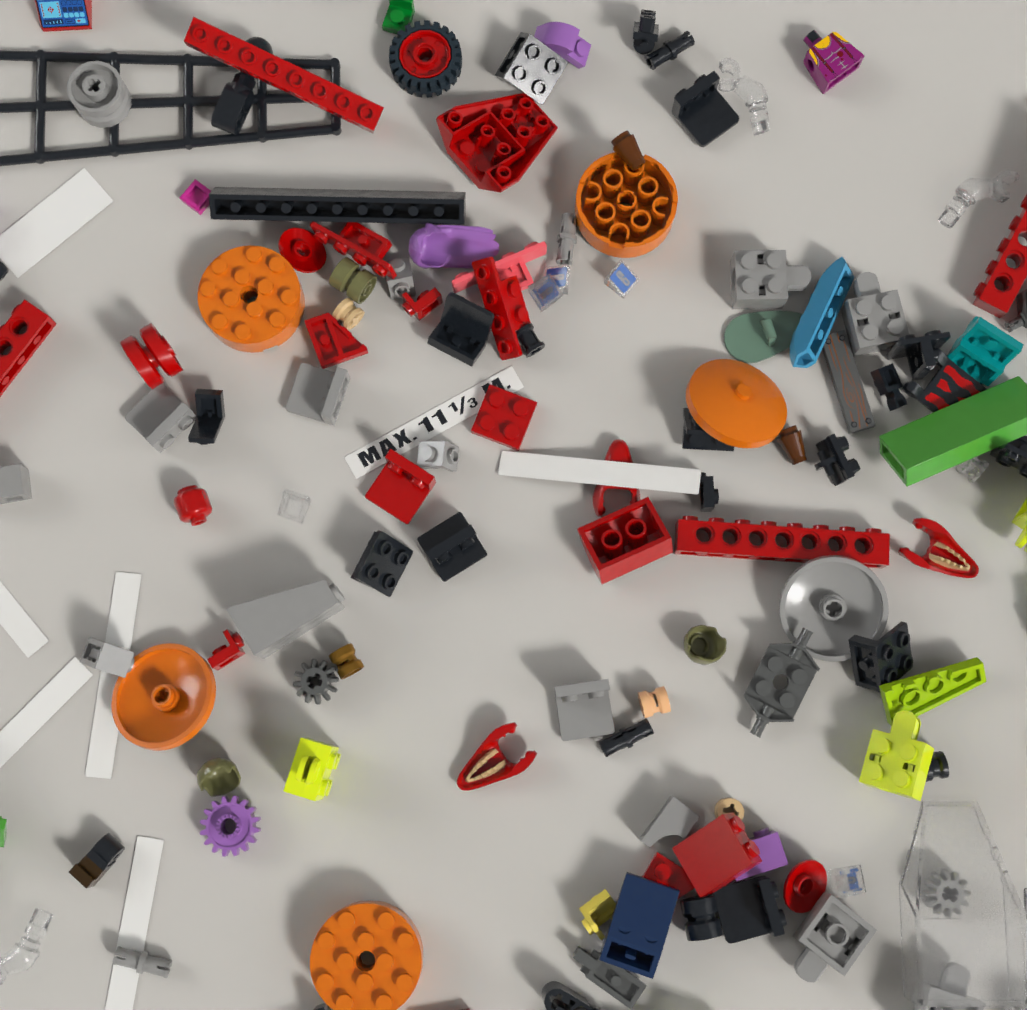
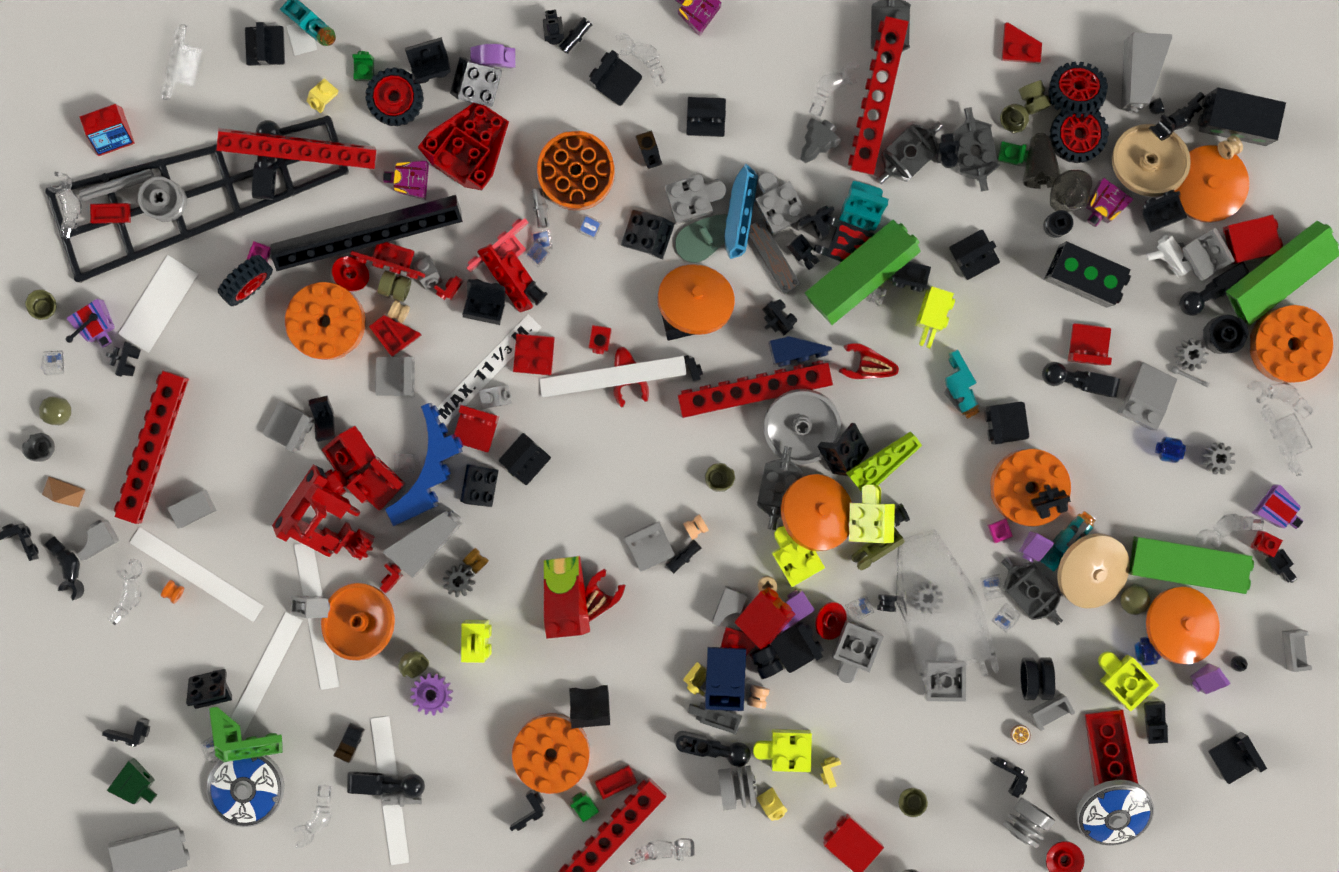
camera: 15 degrees left, 10 degrees up
(31, 96) = (110, 213): none -> red tile
(43, 65) = (115, 185): none -> light grey axle
(115, 930) = (377, 784): none -> black beam
(150, 357) = (267, 388): red wheel -> none
(166, 216) = (245, 280): none -> black wheel
(168, 517) = (313, 493): none -> red container
(223, 524) = (359, 492): none -> red bracket
(226, 471) = (348, 452): none -> red slope
(252, 523) = (381, 483): none -> red bracket
(336, 32) = (321, 95): none -> light yellow bracket
(346, 499) = (434, 472): none -> blue arch
(413, 158) = (409, 178): none -> magenta torso
(439, 909) = (589, 707): none -> black brick
(450, 747) = (564, 598): none -> red slope
(451, 246) = (459, 239): medium lavender hair -> none
(480, 24) = (428, 60): none -> black bracket
(598, 410) = (604, 331): none -> red brick
(625, 540) = (644, 420): red slope -> none
(628, 150) = (566, 133): reddish brown cone -> none
(678, 958) = (758, 696): none -> light nougat wheel
(695, 307) = (648, 234): none -> black bracket
(724, 205) = (649, 149): none -> leg
(782, 781) = (795, 558): none -> neon yellow brick
(792, 444) = (745, 315): reddish brown cone -> none
(806, 188) = (706, 116): none -> black bracket
(824, 730) = (816, 512): none -> orange dish
(850, 503) = (790, 348): none -> dark blue slope
(888, 884) = (887, 603): none -> black wheel
(890, 806) = (875, 551): none -> olive hinge
(944, 253) = (819, 139): none -> dark grey rock

